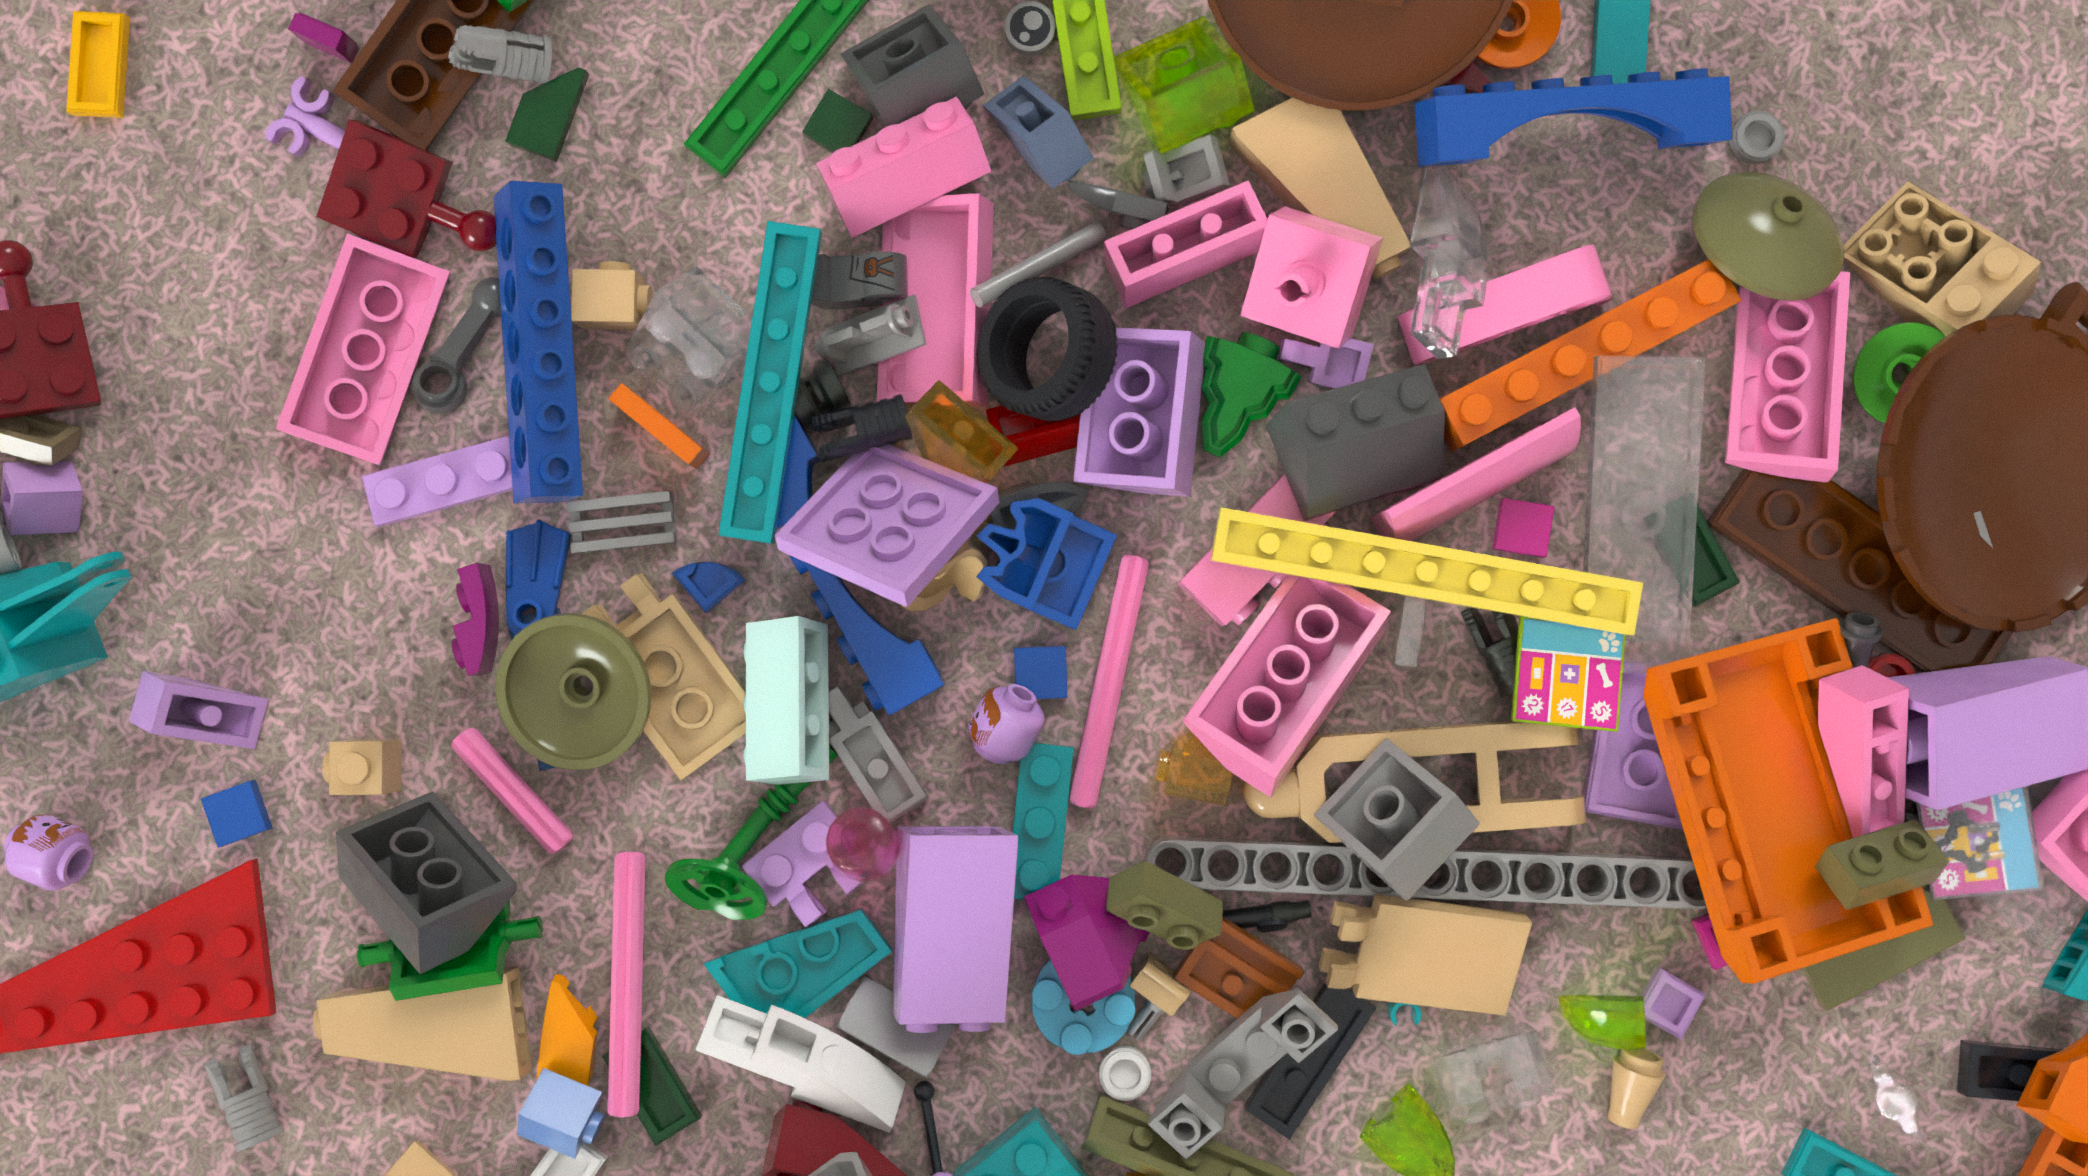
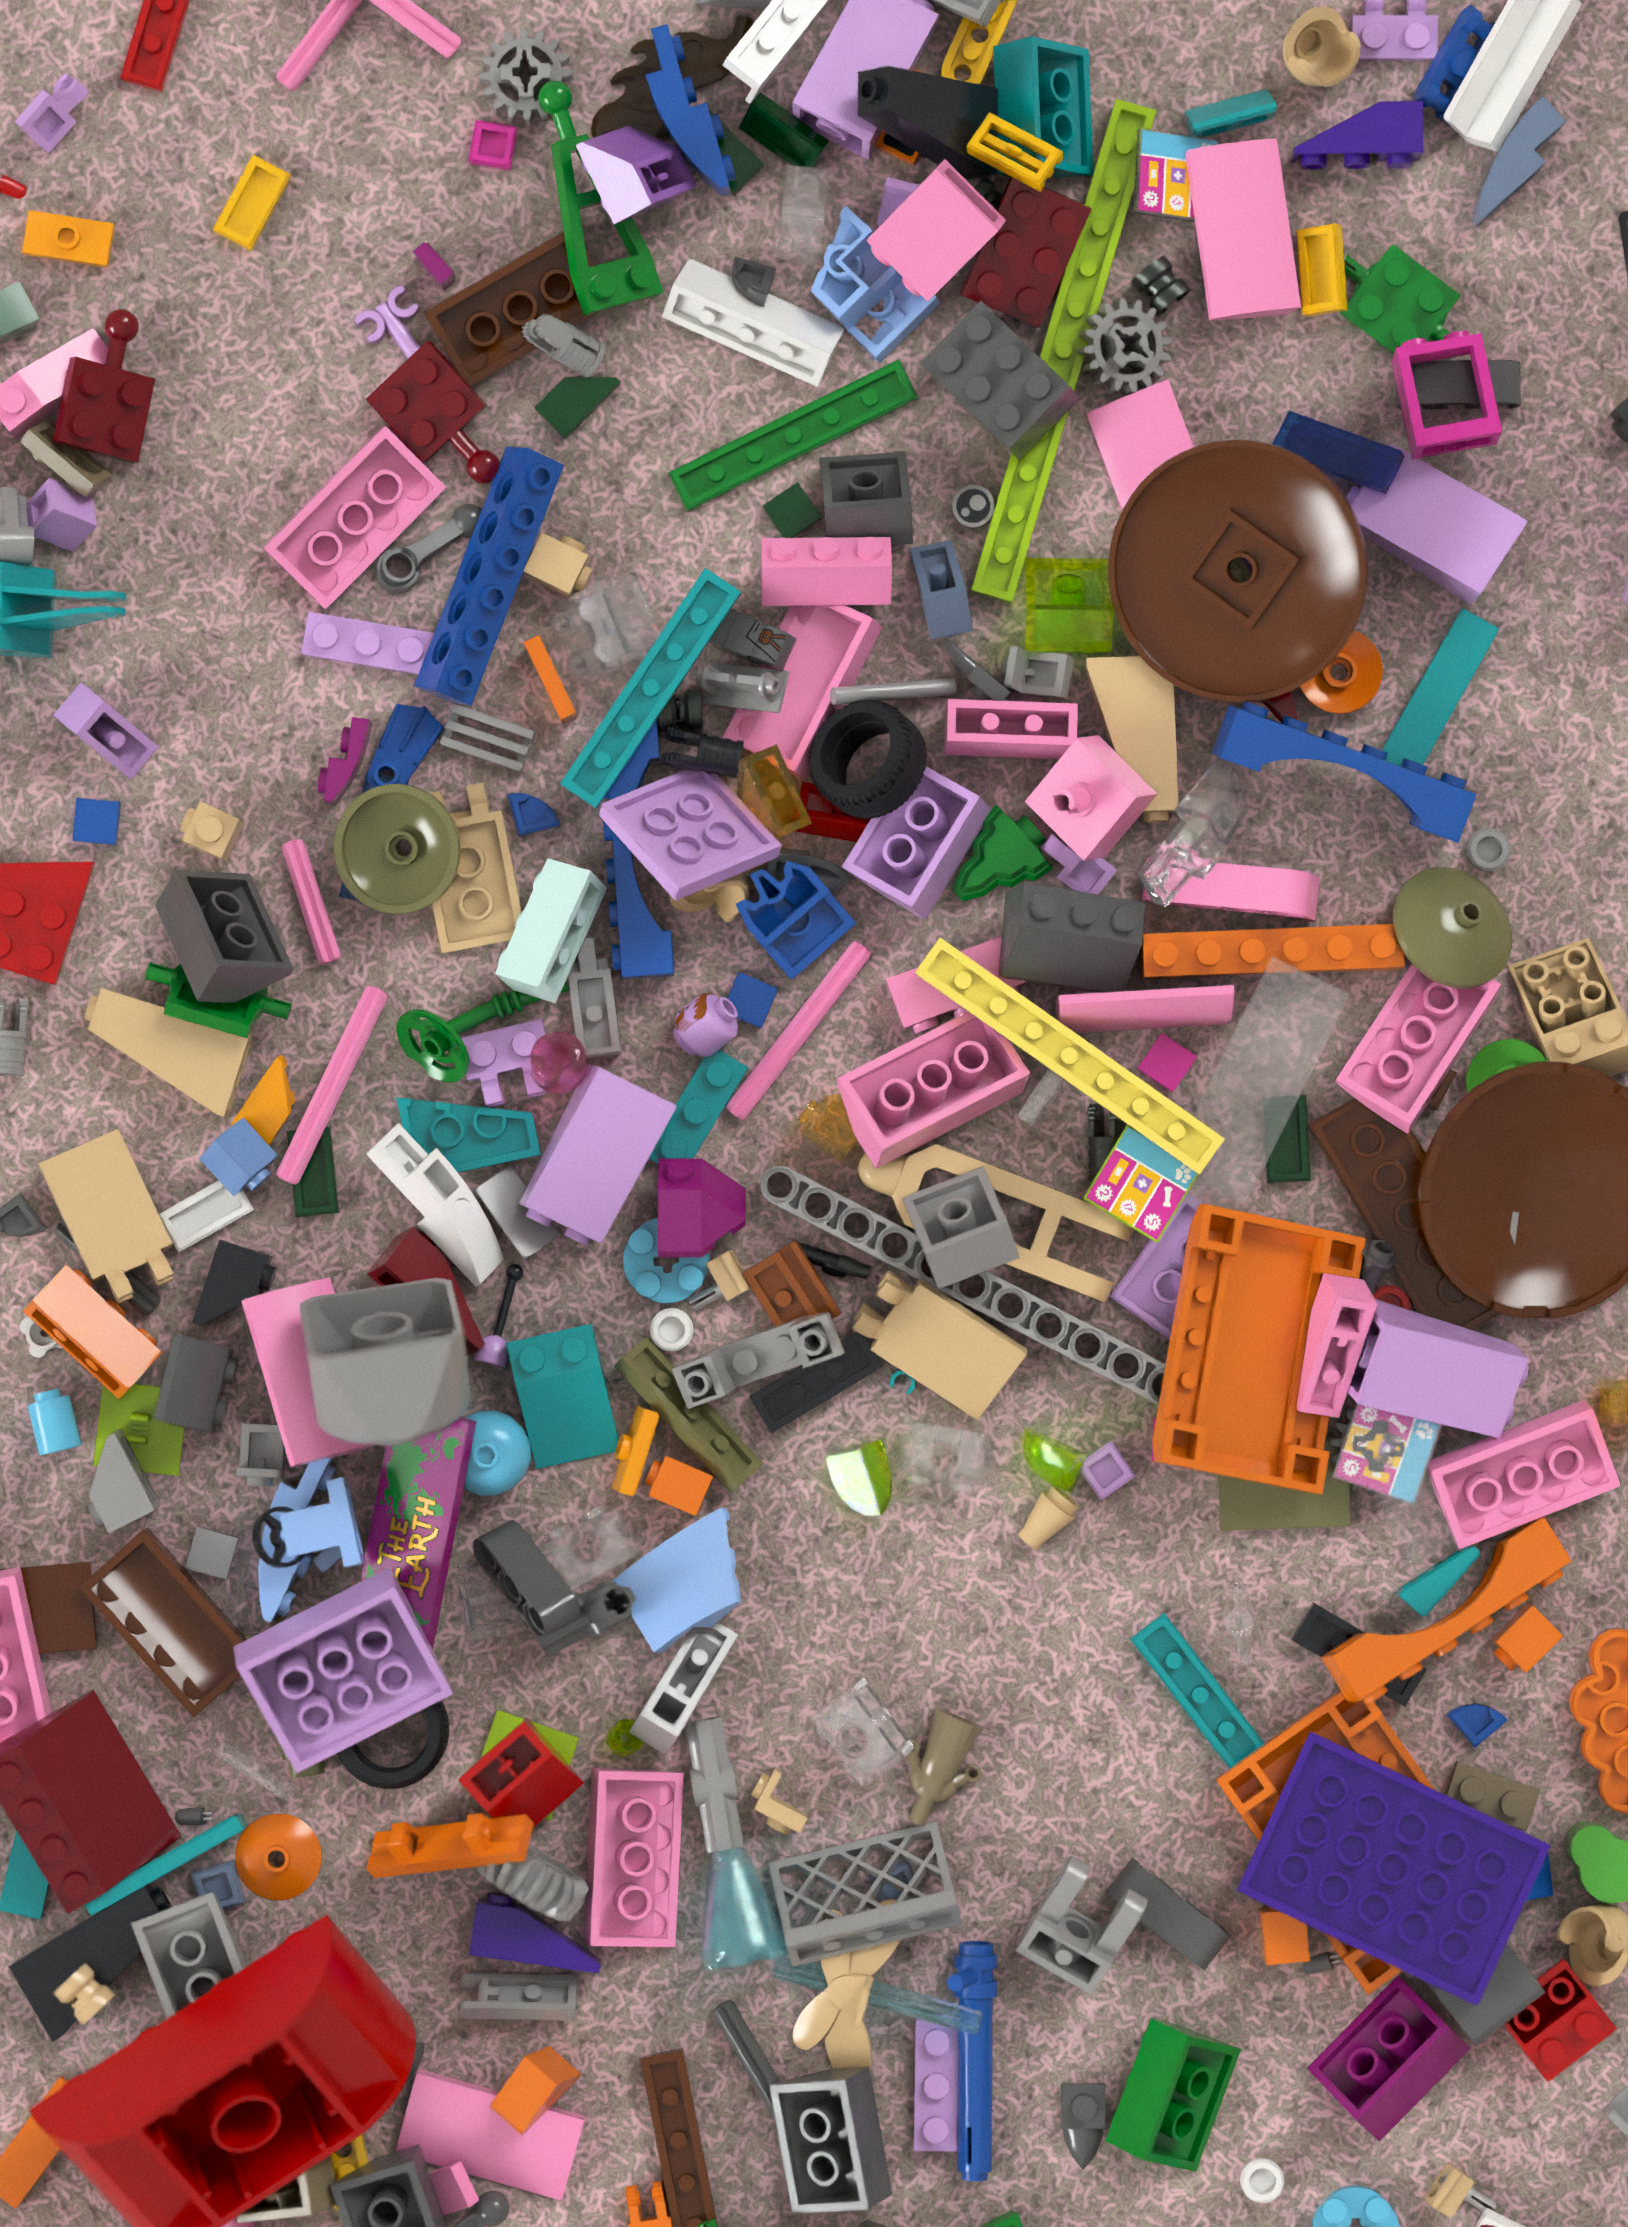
camera: 25 degrees right, 0 degrees up
(1164, 905) = (760, 1212): olive piece -> none
(1881, 864) = (1302, 1428): olive piece -> none

